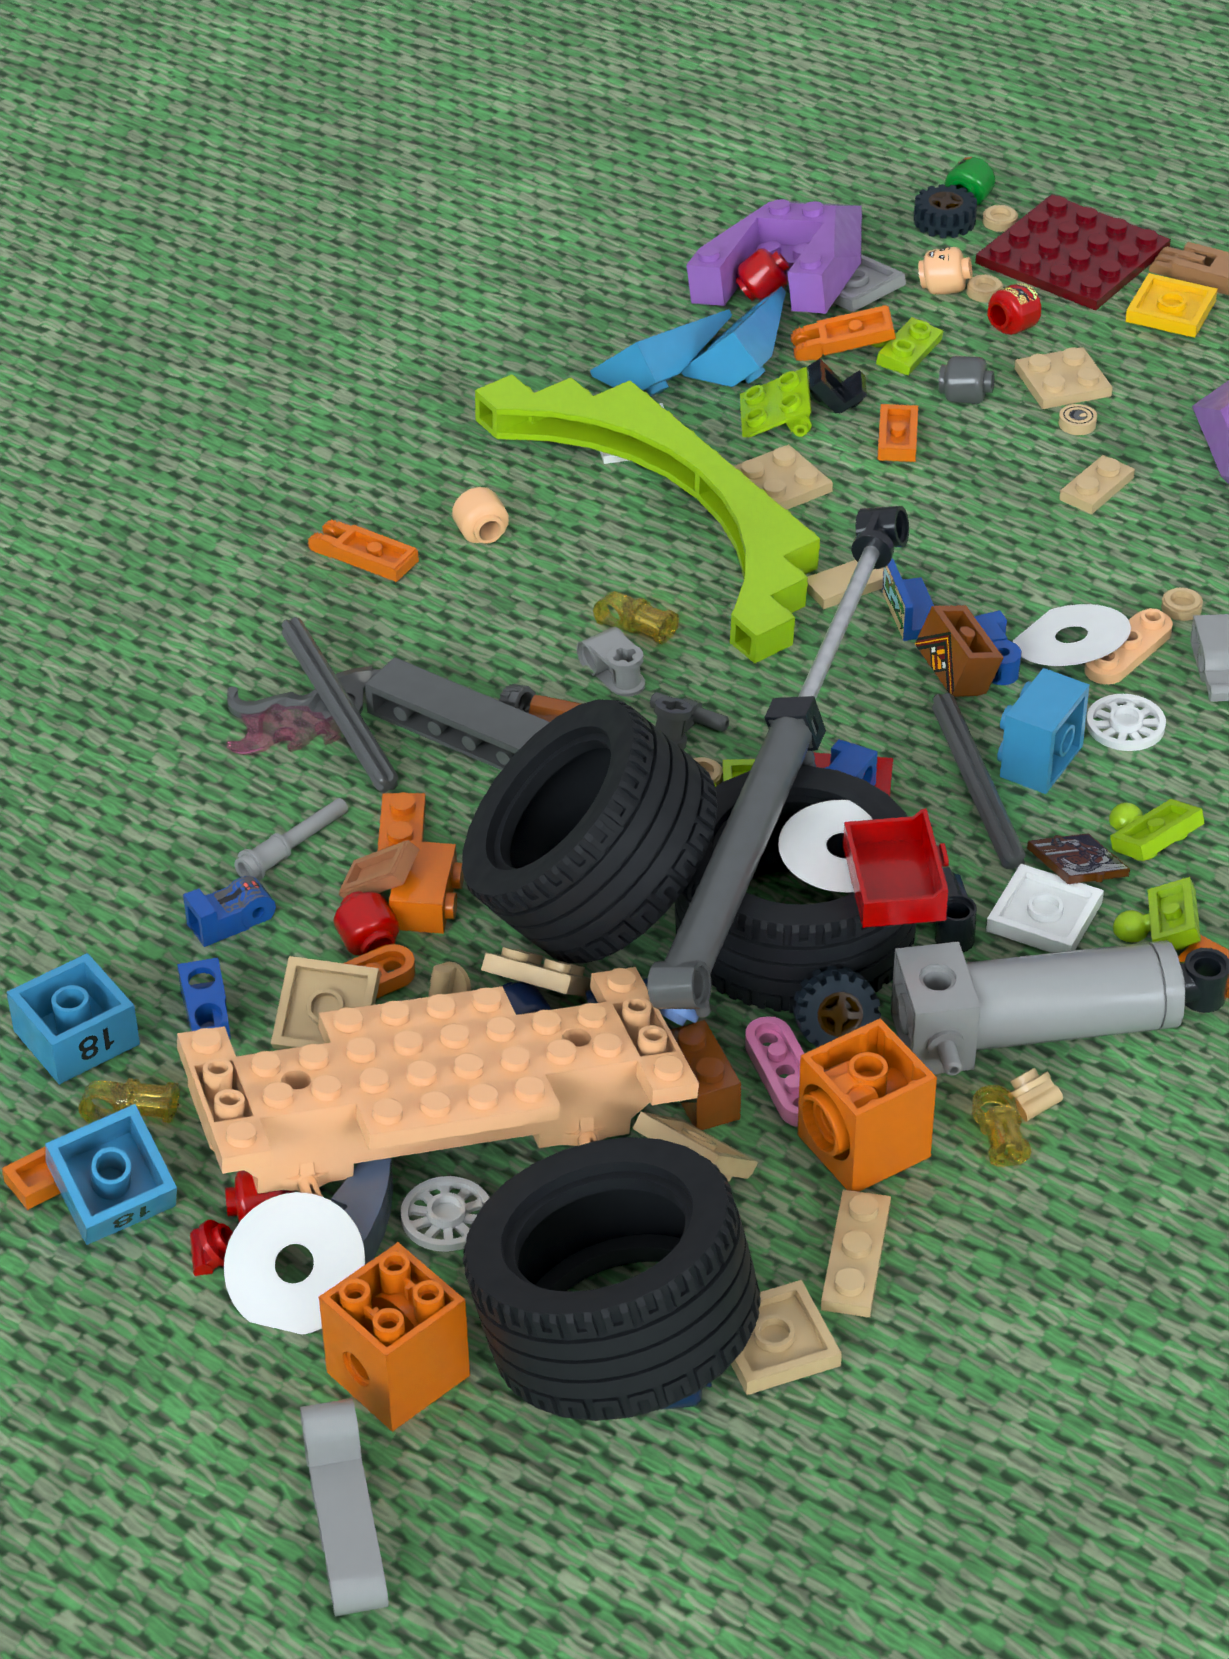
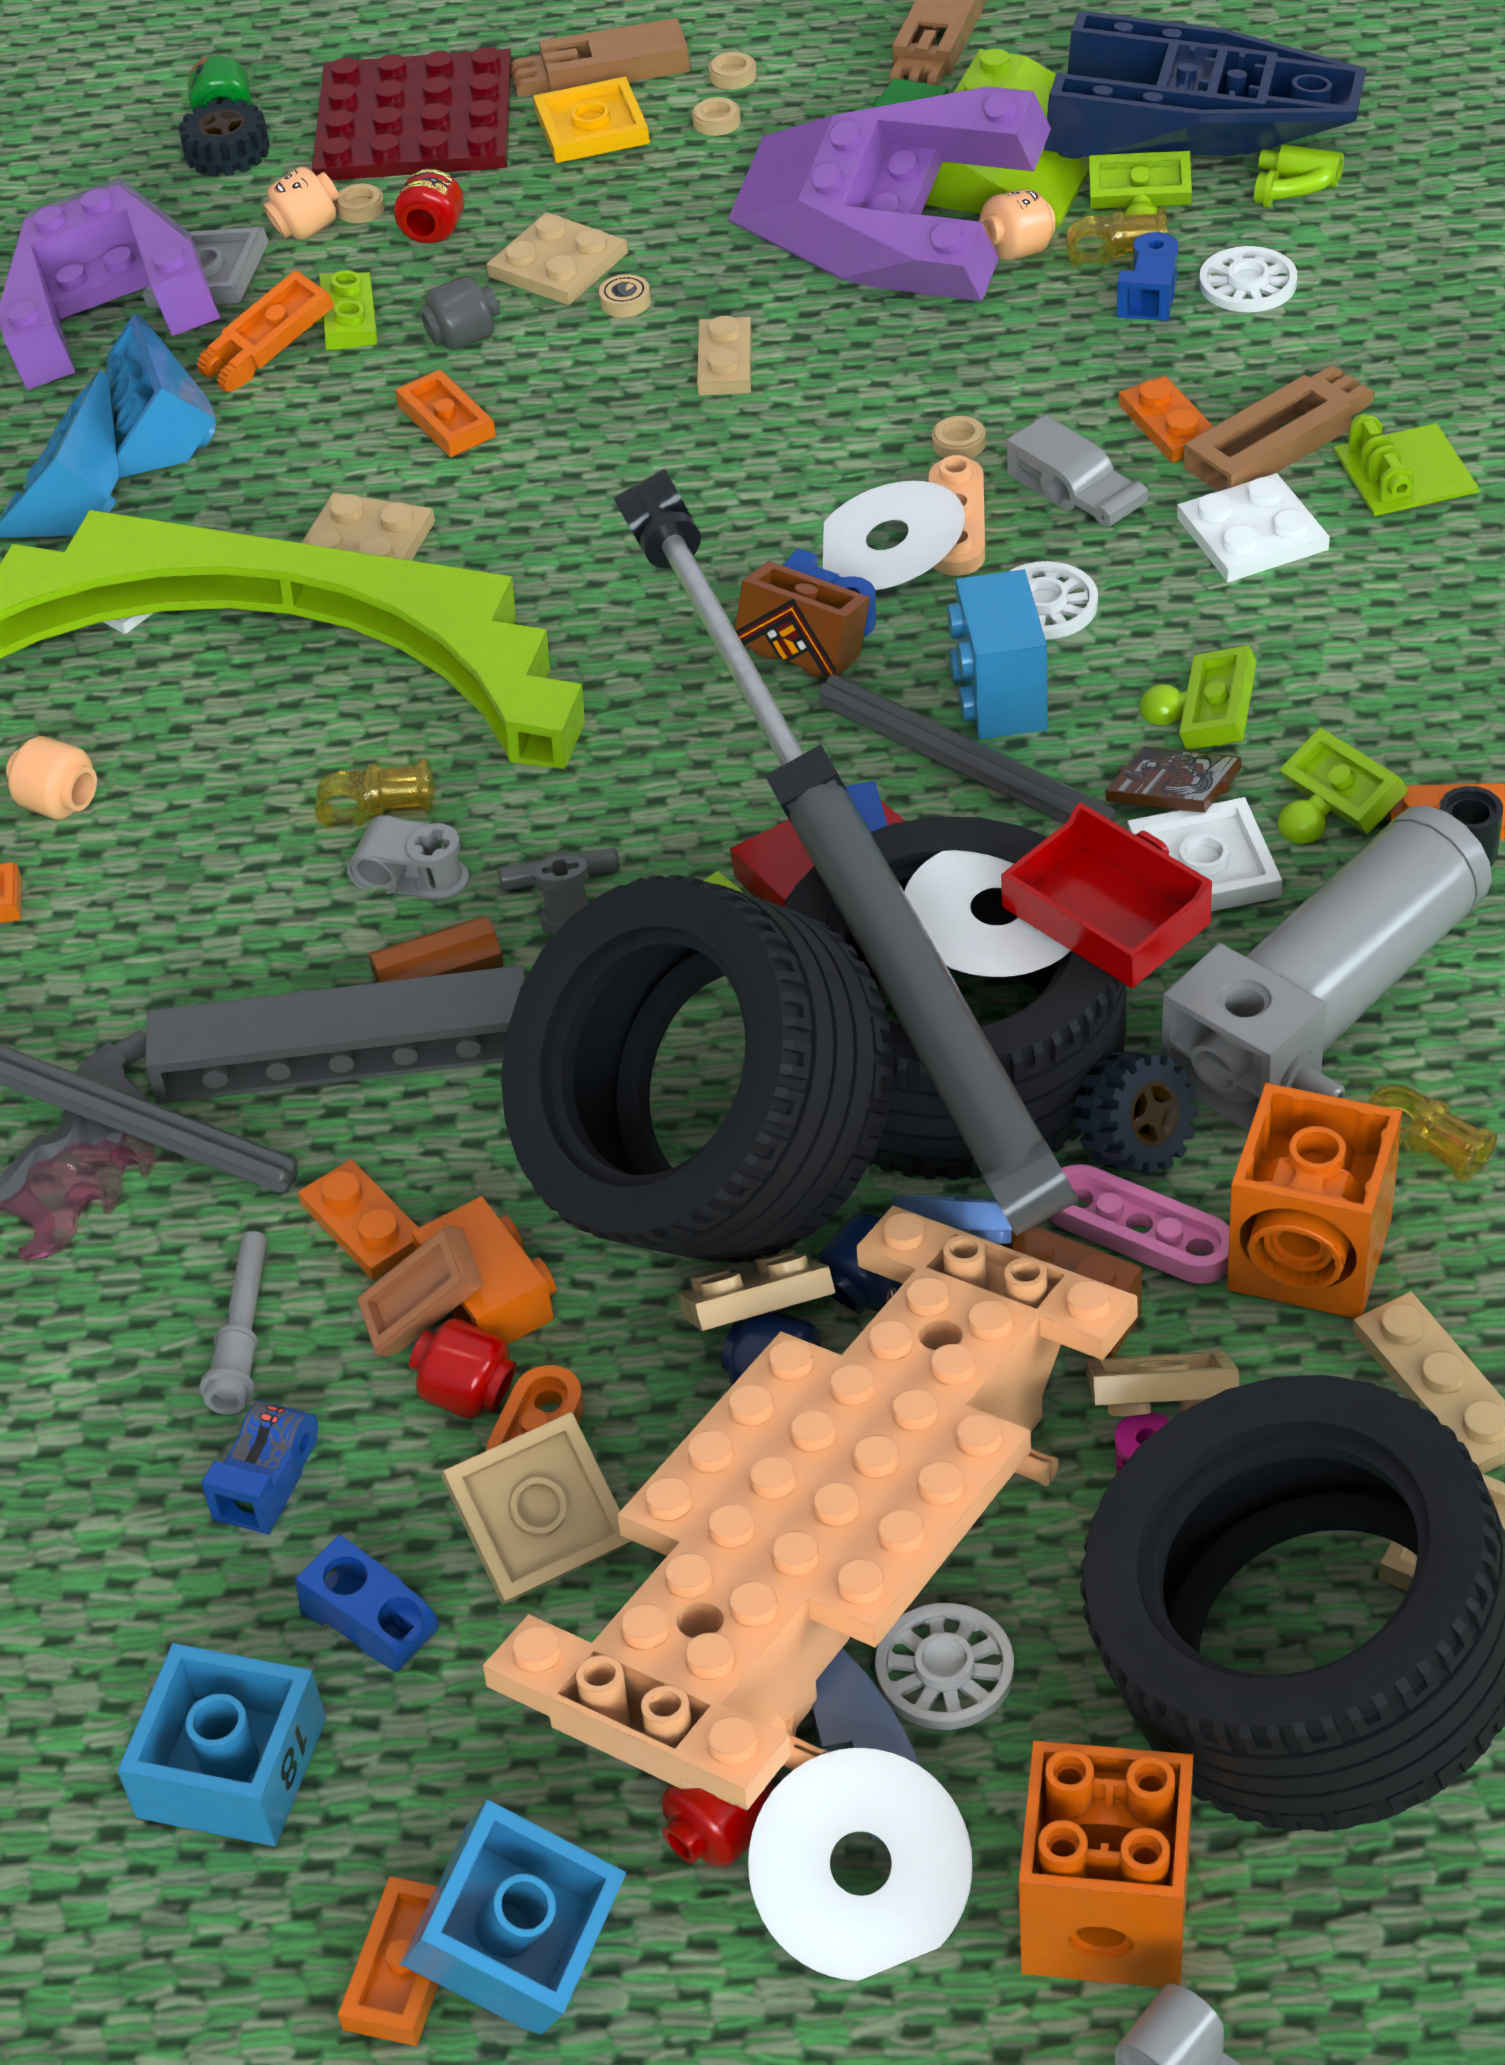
camera: 35 degrees left, 5 degrees up
(150, 1099) = (404, 1803): clear yellow connector -> none
(209, 1246) = (714, 1919): red plate -> none
(449, 979) = (641, 1376): tan plate -> none
(517, 696) = (347, 969): dark grey axle -> none
(762, 274) = (95, 310): red head -> none
(777, 403) = (270, 453): lime hinge -> none
(830, 585) = (575, 610): tan tile -> none
(834, 392) = (331, 402): black bracket -> none
(906, 600) = (662, 599): blue panel -> none
(999, 218) = (290, 117): tan tile -> none
(1035, 1093) = (1417, 1066): tan plate -> none

